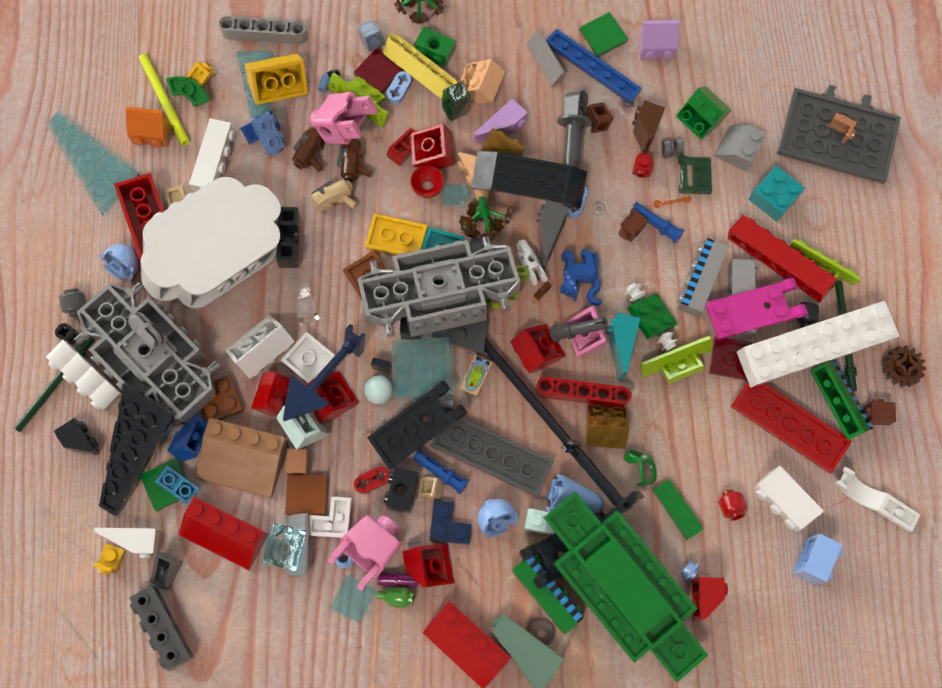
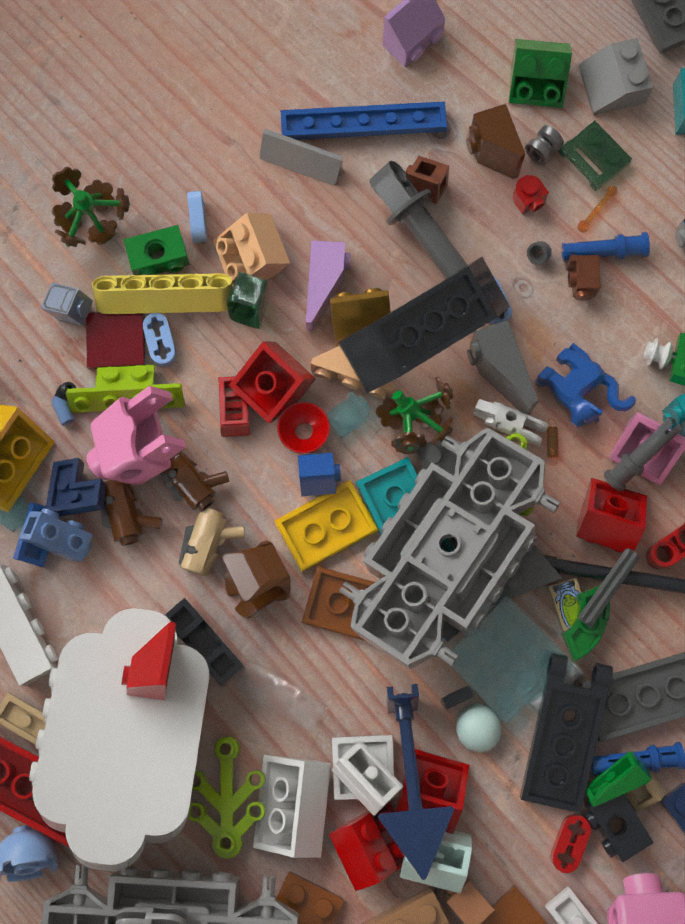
camera: 40 degrees left, 5 degrees up
(232, 319) = (227, 803): none -> lime plant
(253, 216) = (151, 666): none -> red slope
(293, 119) = (69, 494): none -> dark blue plate
(303, 358) = (367, 777): none -> white brick
(339, 228) = (256, 577): none -> reddish brown piece
(413, 208) = (318, 474): none -> blue brick
(427, 468) = (618, 779): none -> green slope
(469, 46) = (197, 217): none -> light blue beam
(477, 387) = (581, 638): none -> green tile
(501, 376) = (608, 587): none -> dark grey axle
(603, 34) = (339, 72): green tile -> none
(620, 193) = (536, 247): none -> dark grey hinge

